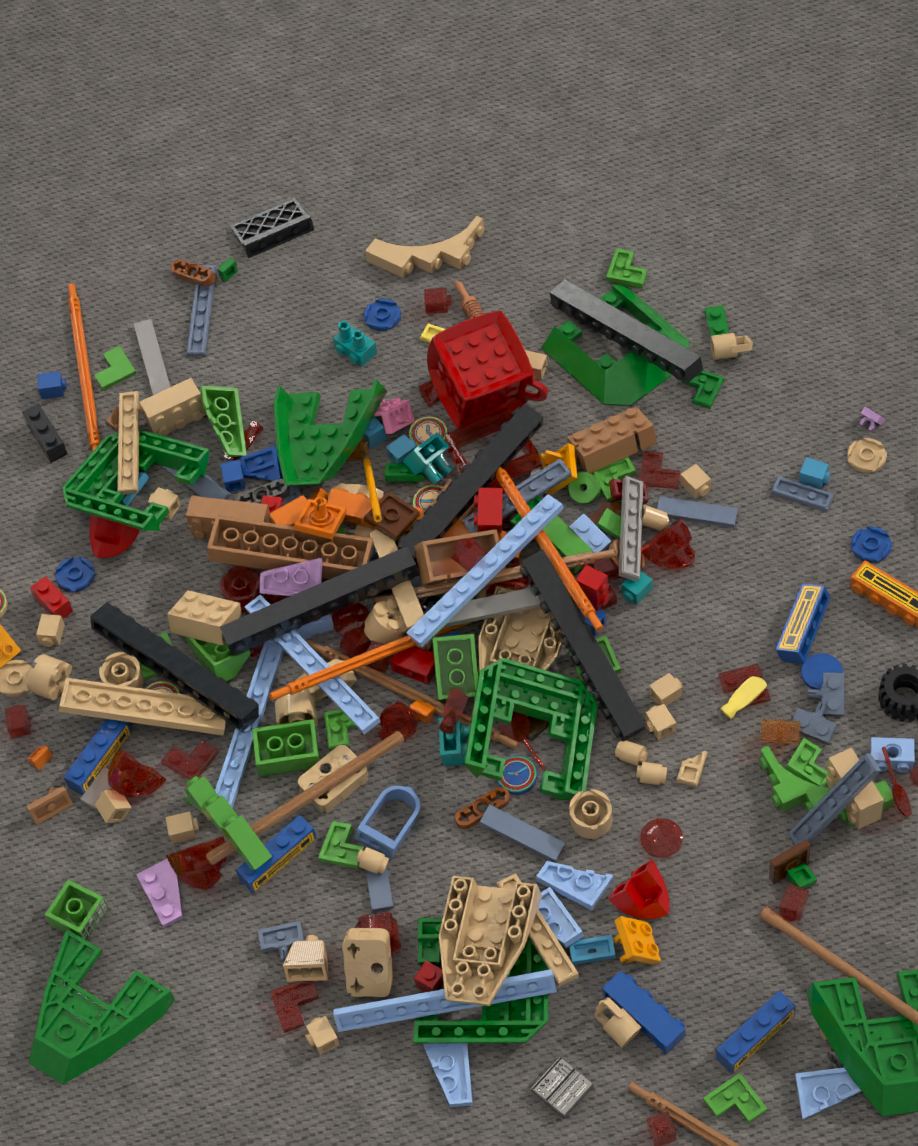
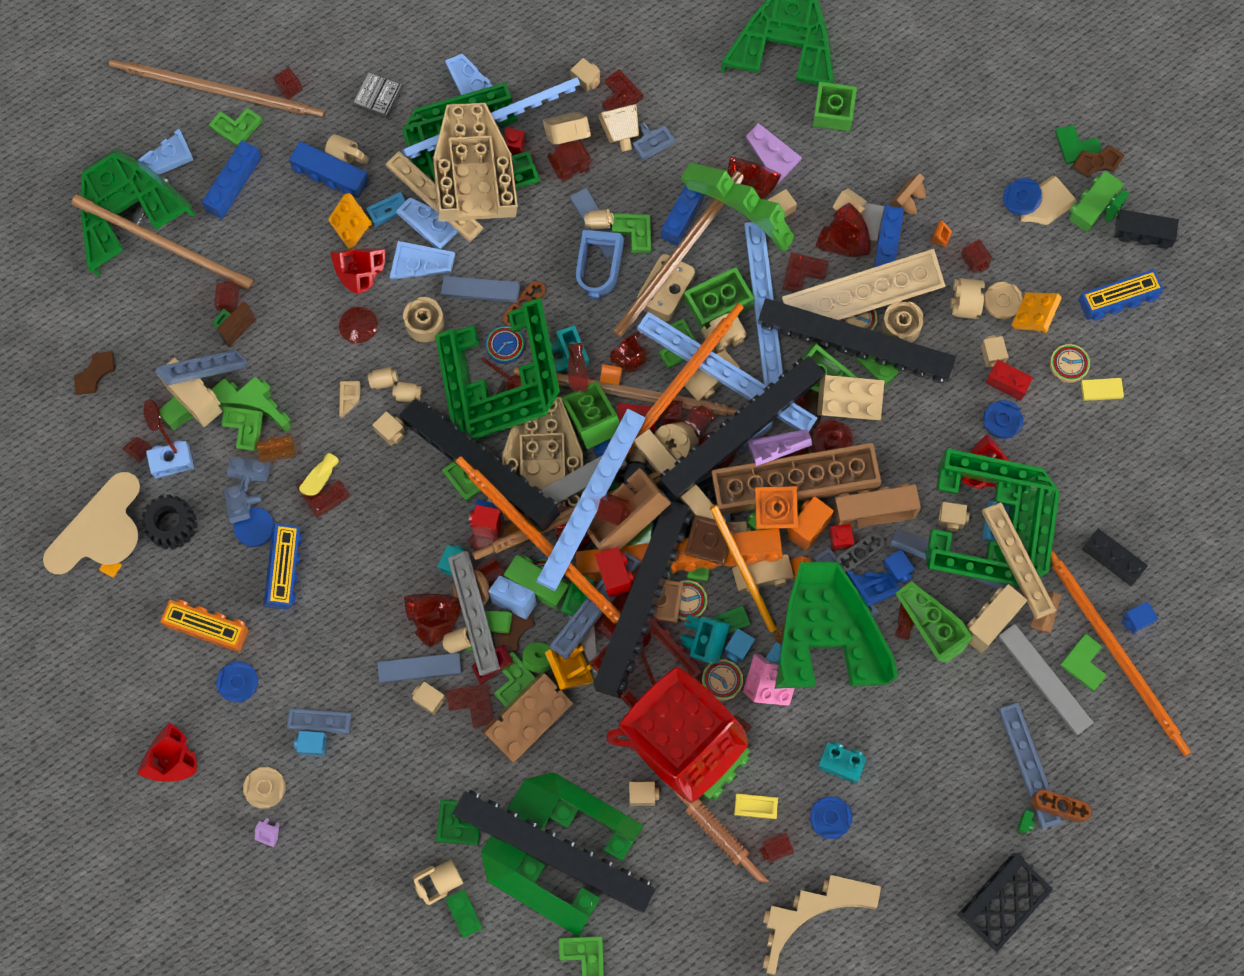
camera: 155 degrees right, 15 degrees up
(666, 690) = (392, 461): tan brick -> none

